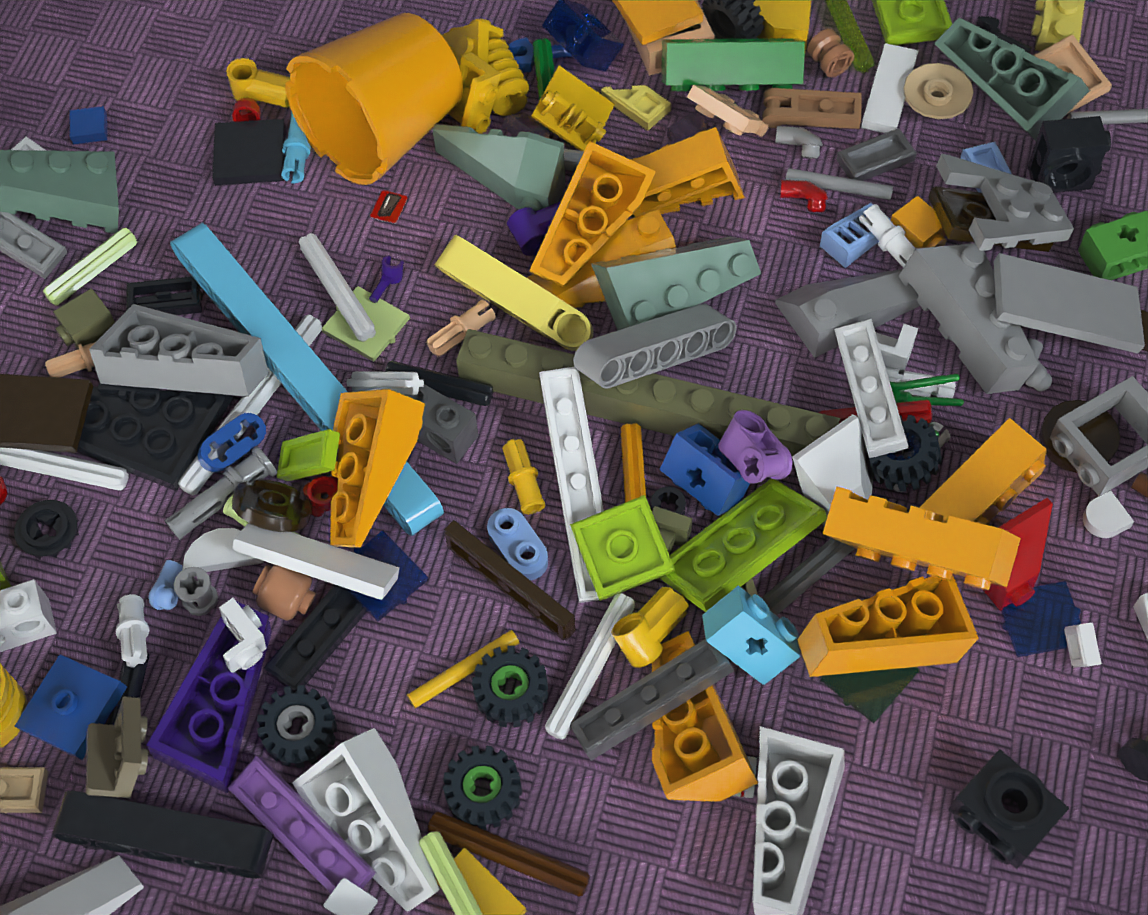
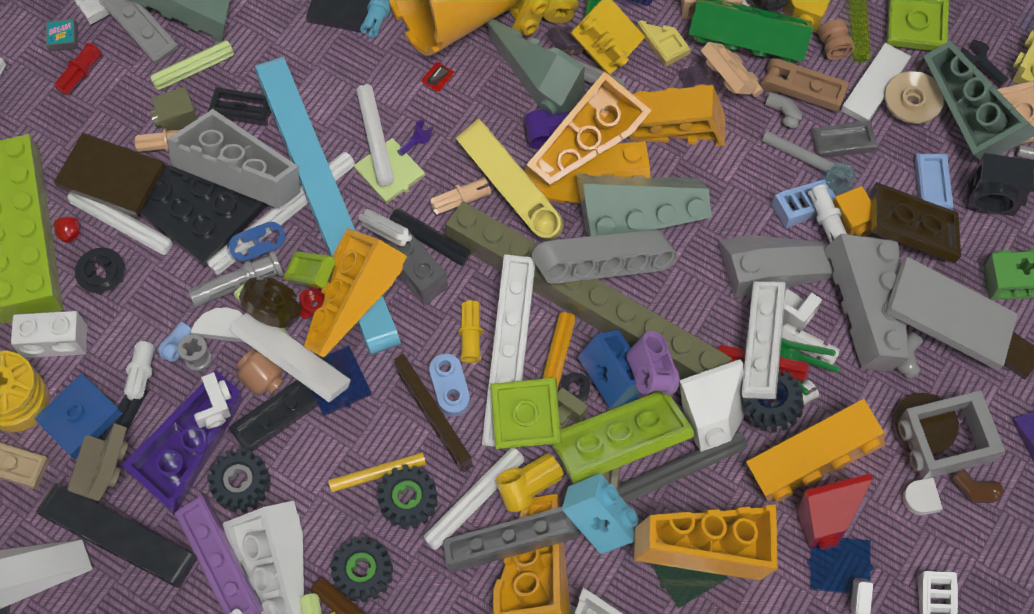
camera: 15 degrees right, 5 degrees up
(805, 190) = (776, 155): red arm -> none
(898, 189) = (849, 175): none -> clear light blue bush
(922, 538) = (756, 478): light orange wedge -> none
(1020, 205) = (944, 218): light grey wing -> none

